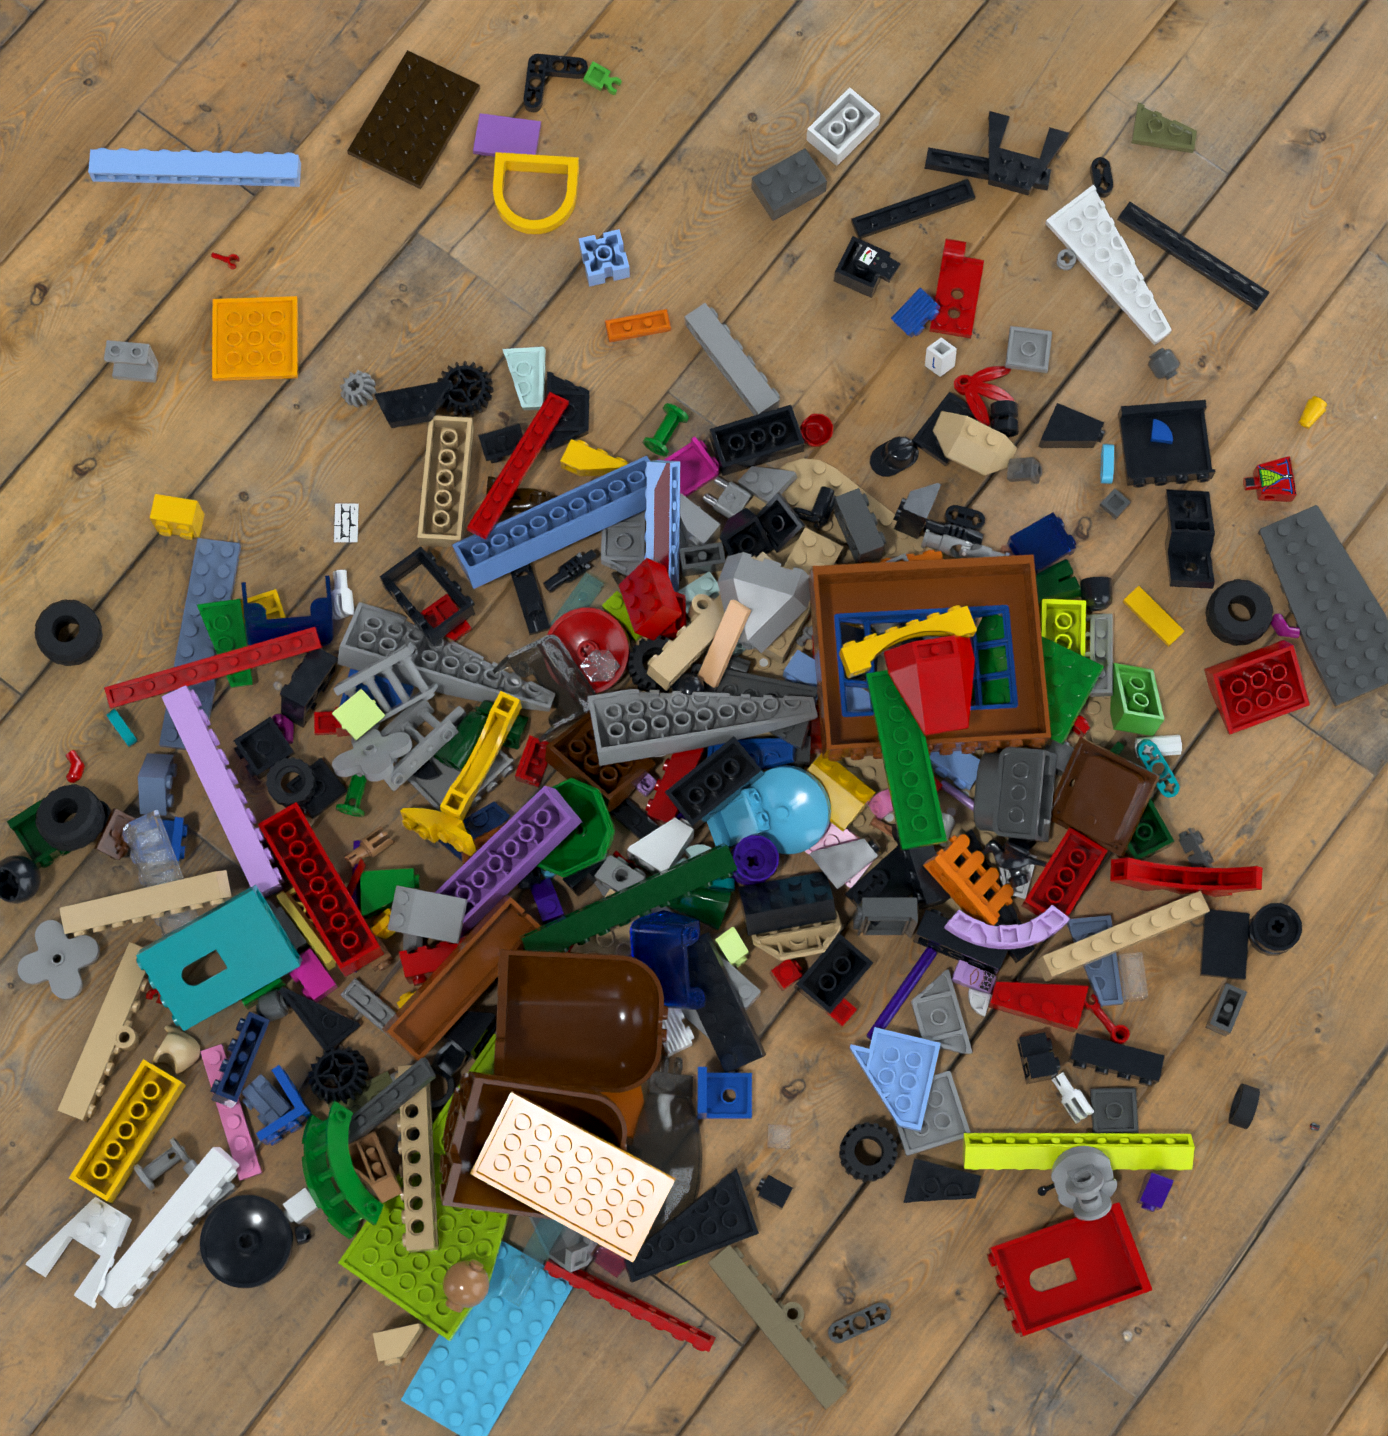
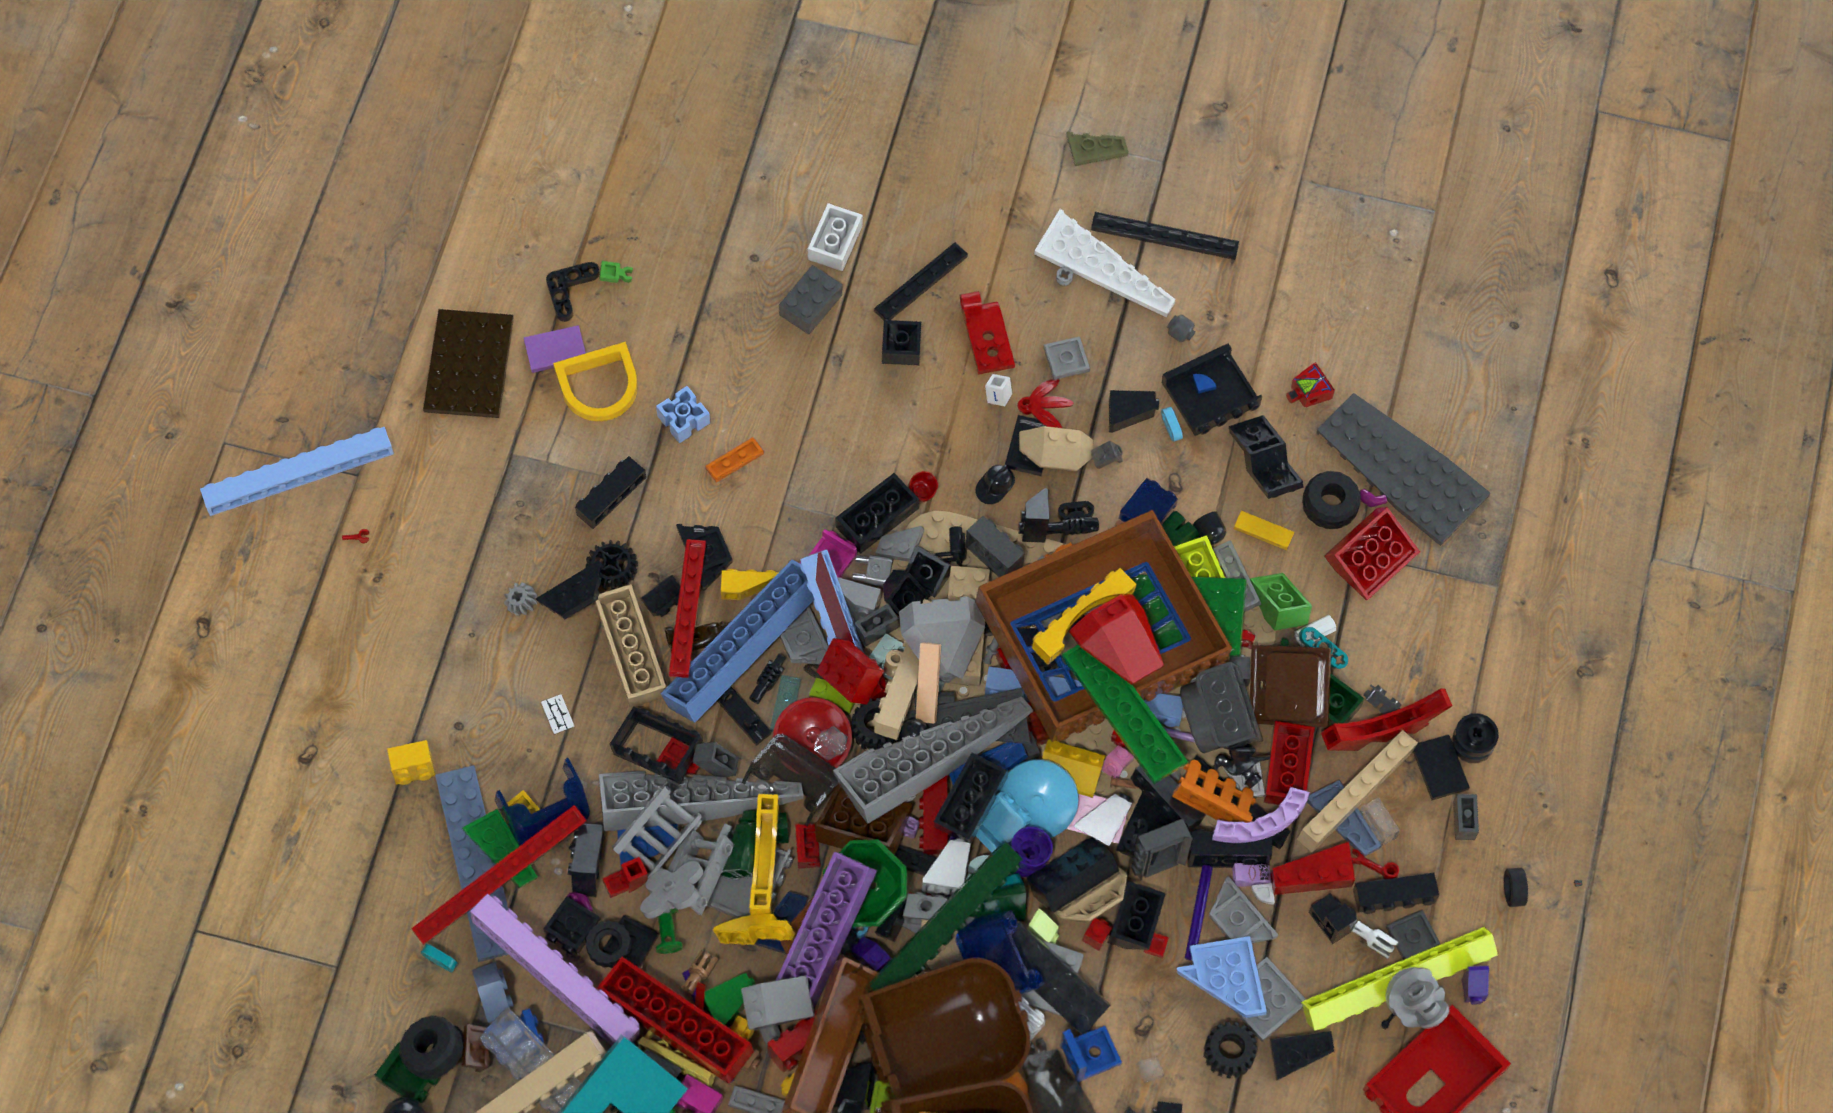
camera: 25 degrees left, 10 degrees down
(54, 619) = (357, 914): black tyre -> none
(76, 769) = (413, 1007): red arm -> none
(131, 361) = (314, 649): light grey panel -> none
(255, 338) = (412, 592): light orange plate -> none
(341, 596) = (584, 772): white arm -> none
(358, 714) = (644, 862): yellowish green piece -> none
(426, 772) = (720, 891): black tile -> none
(478, 636) = (716, 759): none -> dark grey brick
(496, 311) = (610, 492): none -> black brick
(528, 374) = (660, 534): light aqua wing -> none
(673, 417) = (795, 547): green hose -> none
(731, 360) = (826, 458): light grey brick -> none
(876, 262) = (914, 333): black tile -> none
(916, 313) = (962, 362): blue brick -> none
(968, 165) = (968, 228): black plate -> none
(968, 550) = (1071, 534): light grey piece -> none
(1004, 416) = (1072, 417): black wheel -> none
(1016, 170) = (990, 220): black wing -> none
(1106, 176) = (1066, 199): black beam -> none
(1115, 503) = (1192, 453): dark grey plate -> none
(1312, 412) = (1316, 321): yellow cone -> none

